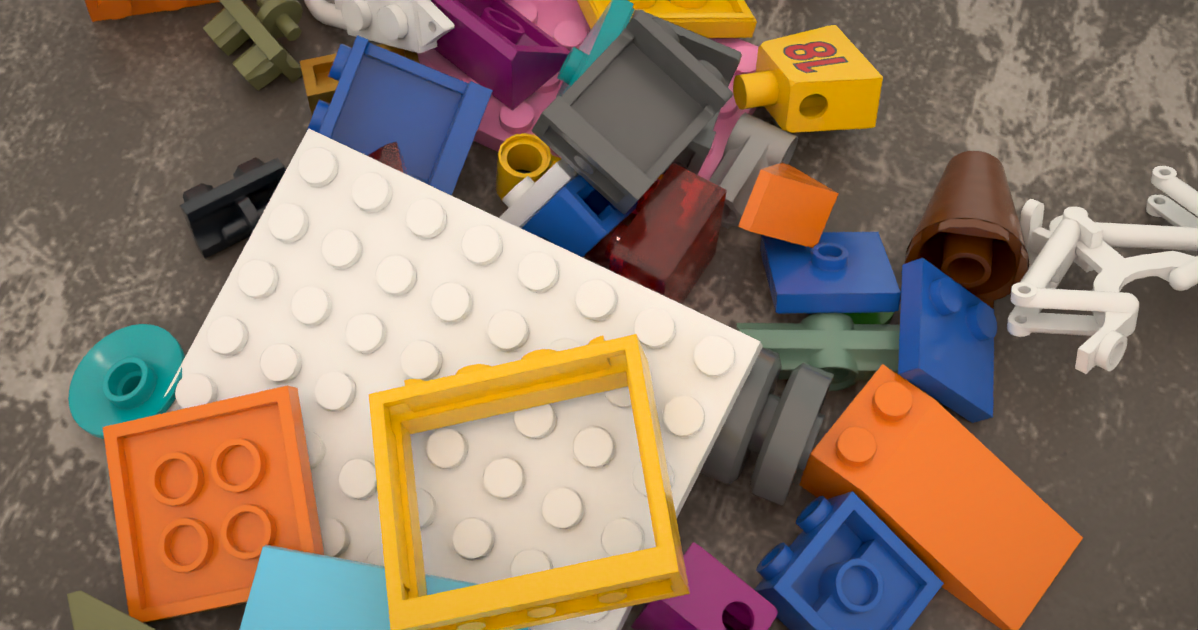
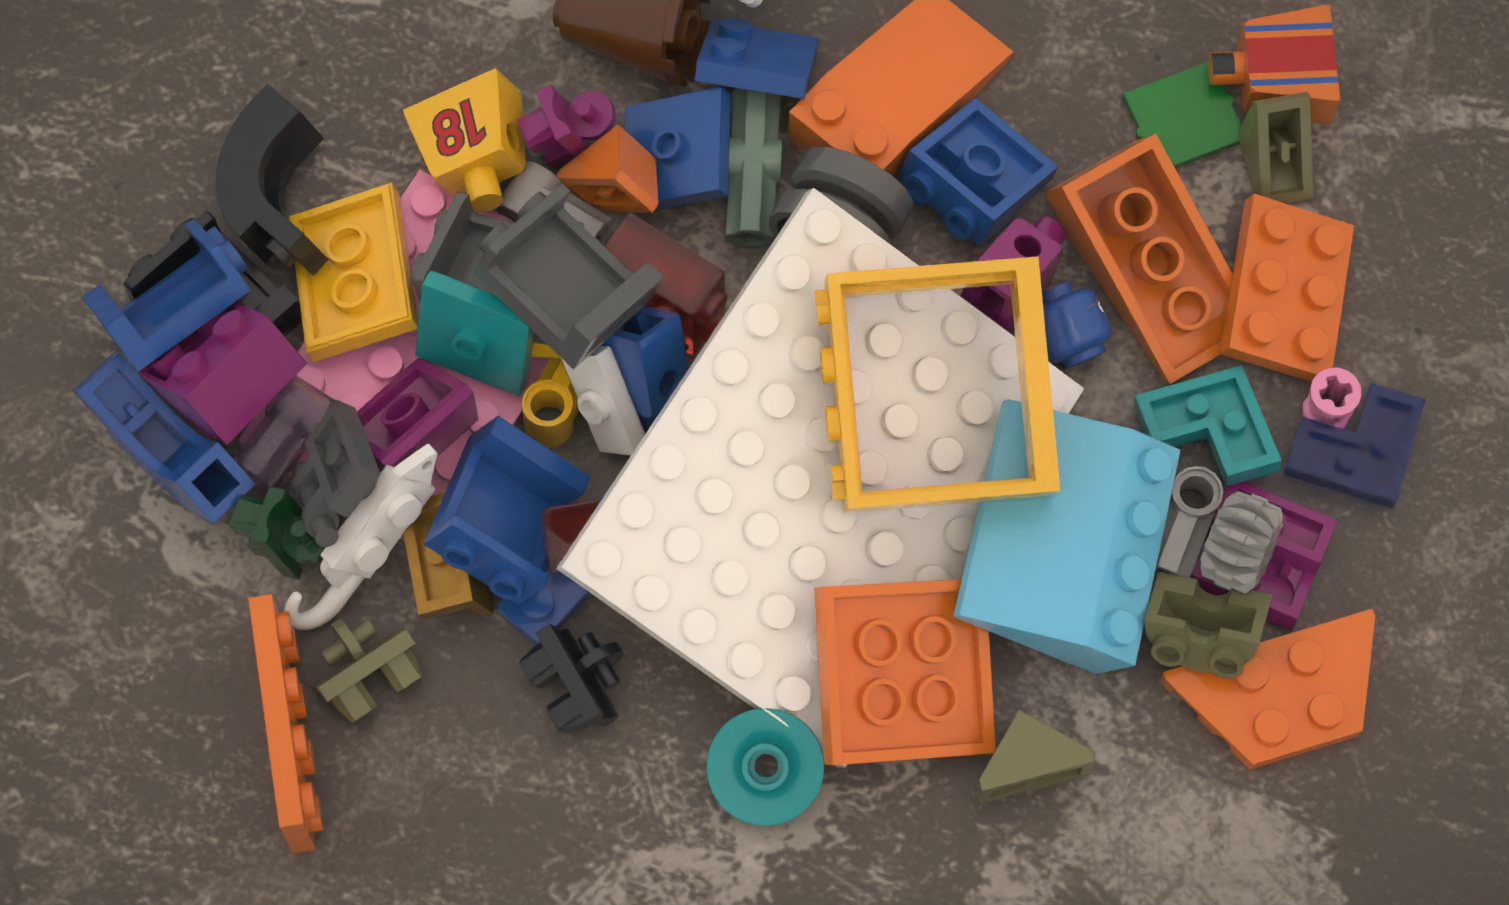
camera: 85 degrees left, 10 degrees up
(840, 154) = (563, 127): none -> magenta hips

